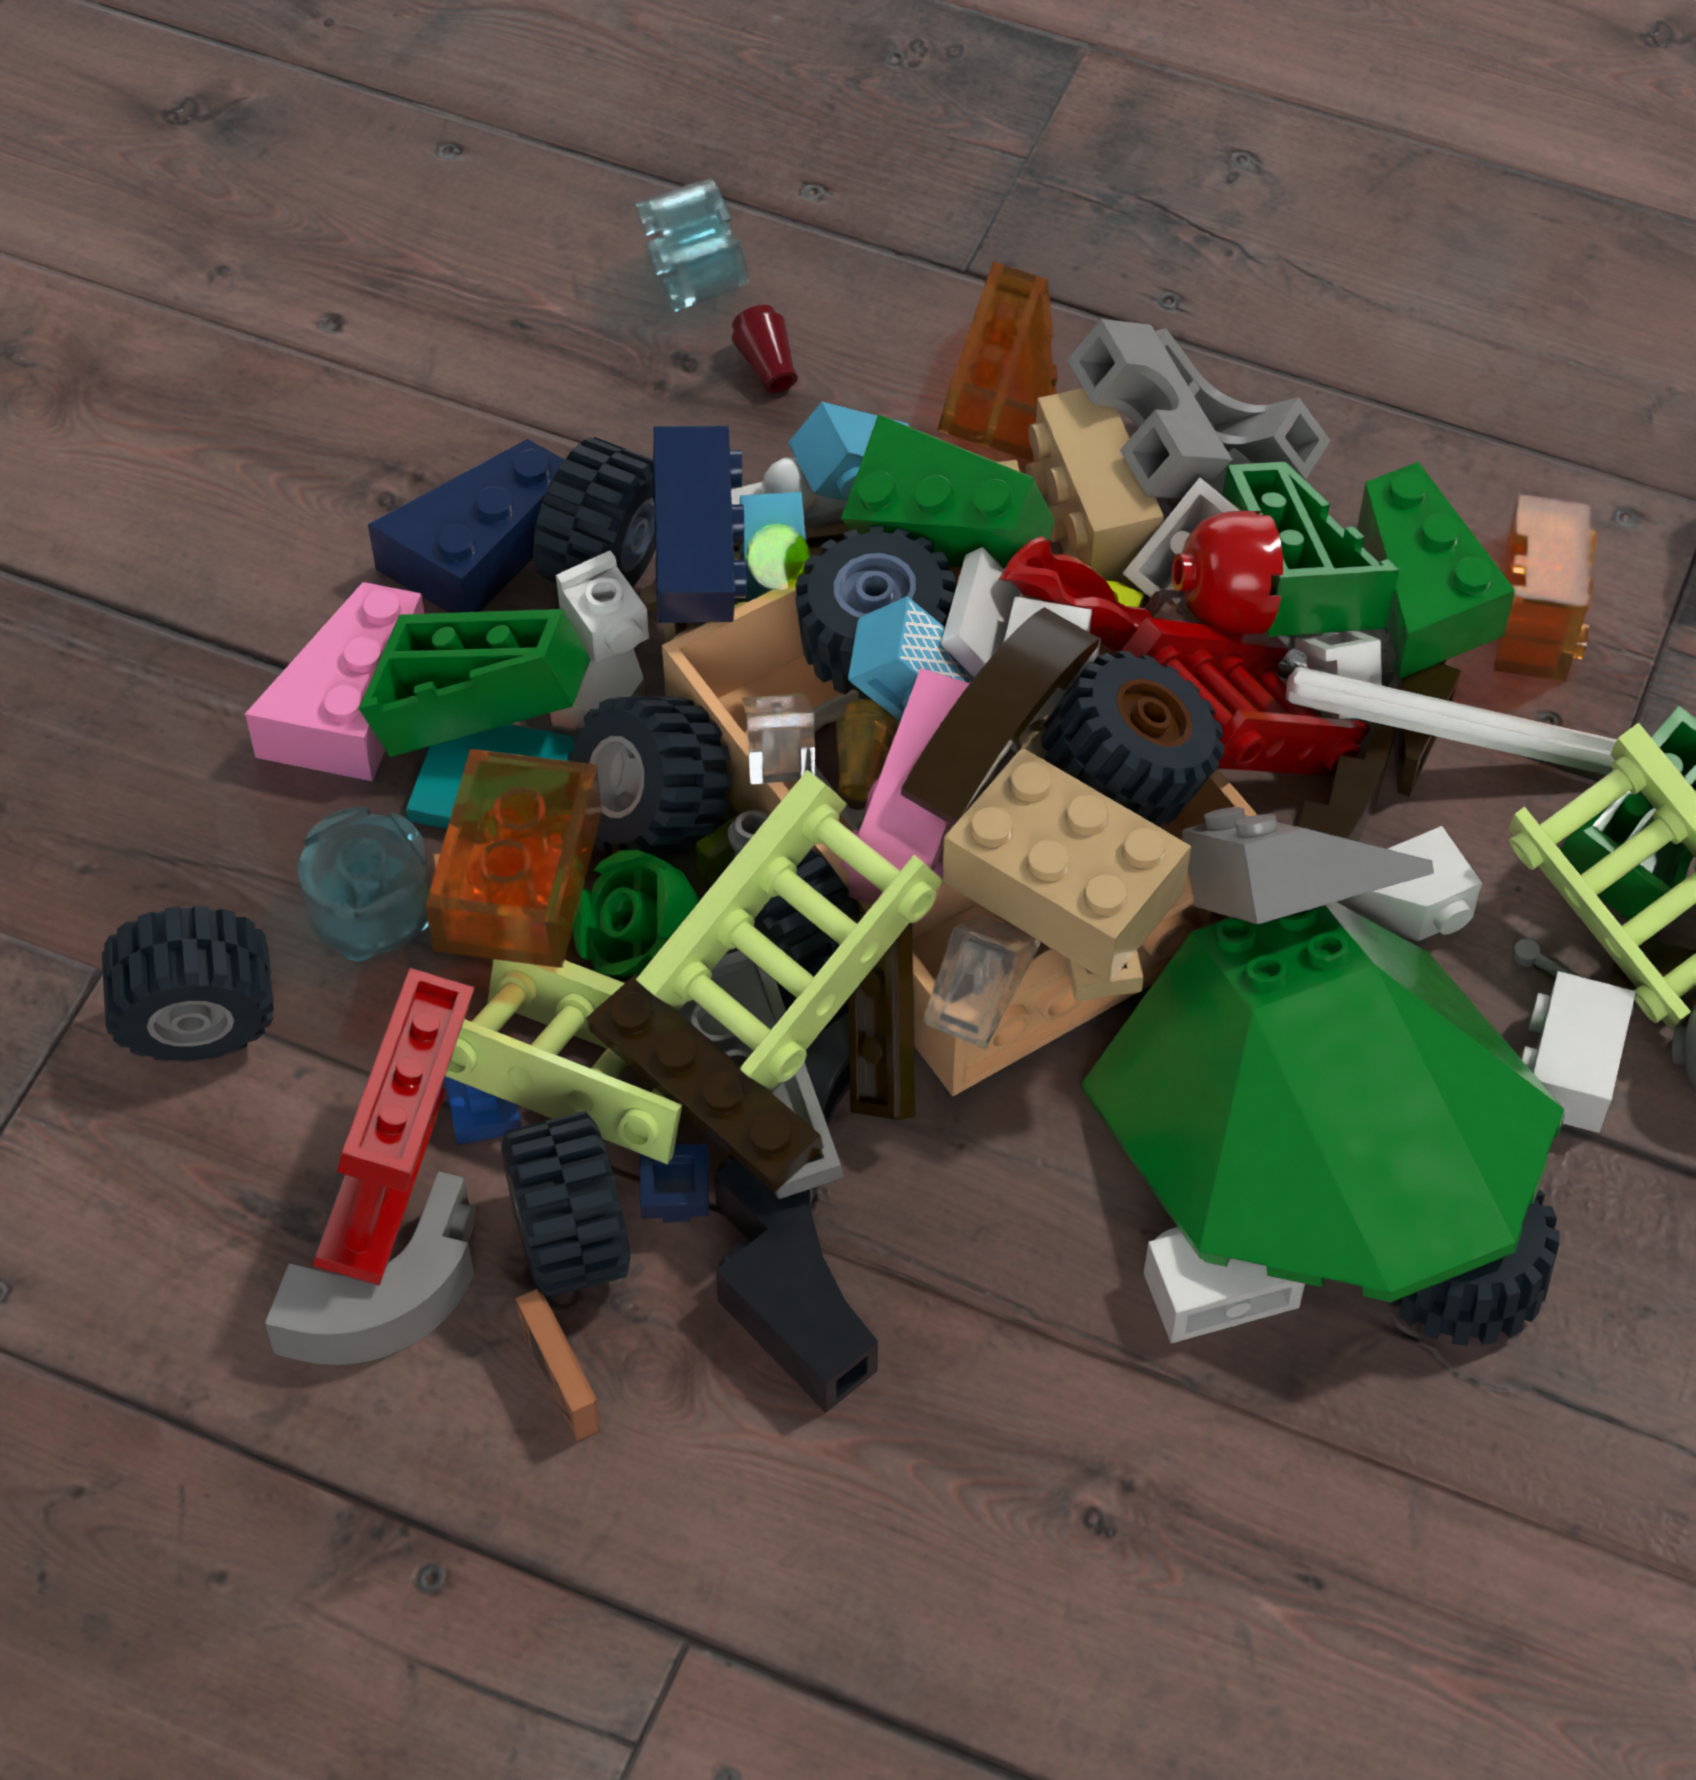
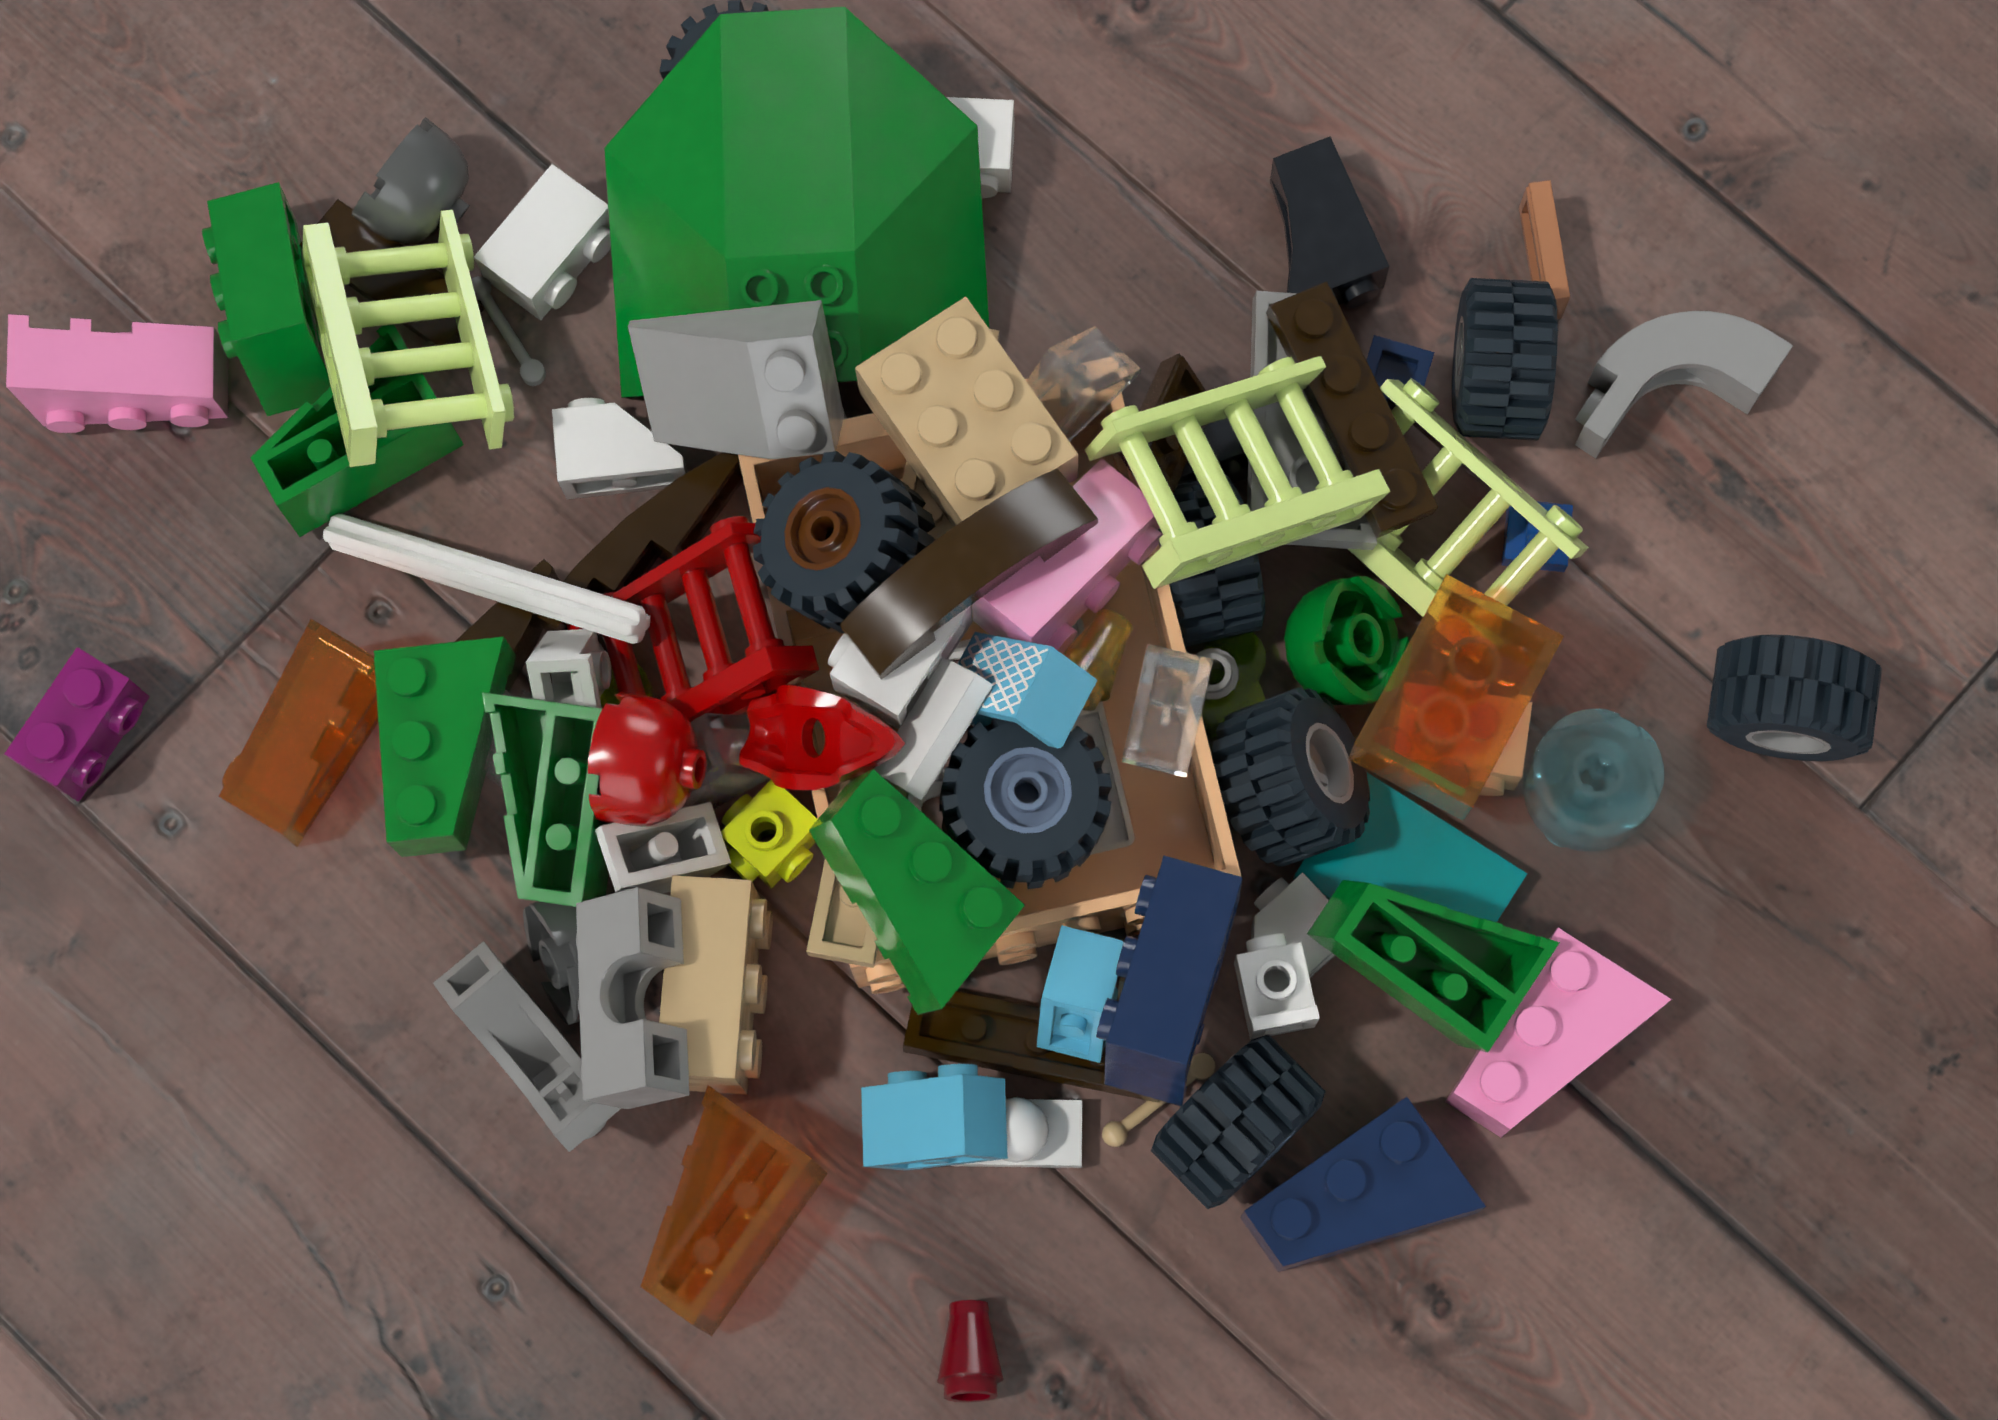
camera: 155 degrees left, 20 degrees up
(393, 1126) = (1642, 449): red fence -> none
(777, 556) = (1094, 923): clear neon green tile -> none

